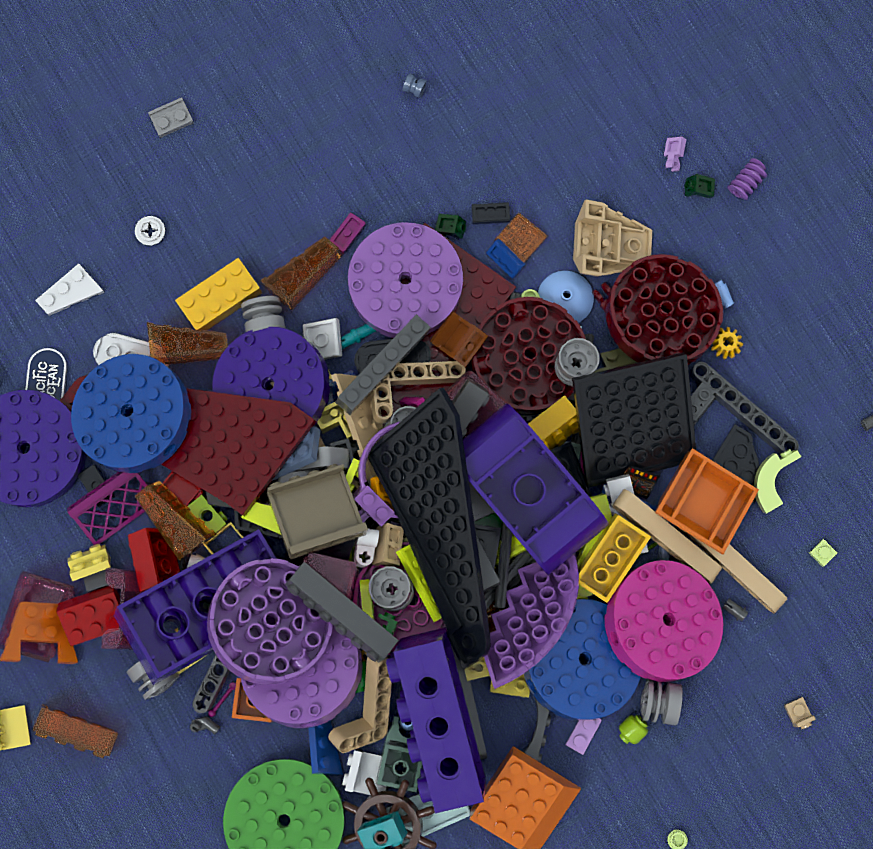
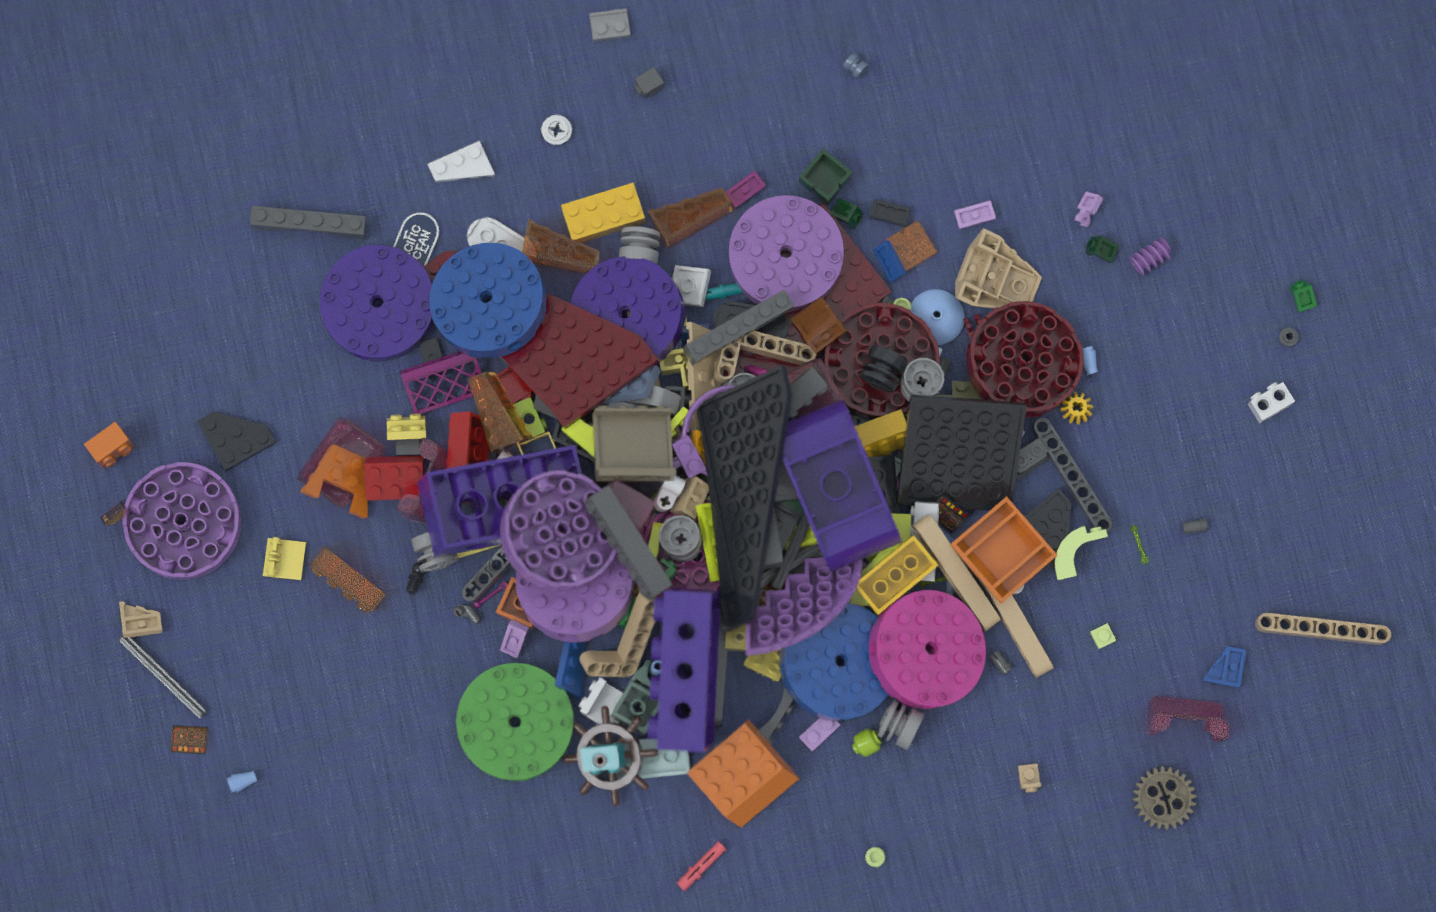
camera: 20 degrees right, 0 degrees up
(143, 708) = (415, 579): none -> black axle
(224, 160) = (648, 83): none -> dark grey brick
(258, 737) = (514, 638): none -> lavender plate
(419, 197) = (825, 176): none -> dark green piece
(535, 361) = (881, 372): none -> black wheel
(571, 191) = (974, 215): none -> lavender plate
(836, 466) = (1144, 559): none -> clear neon green hinge

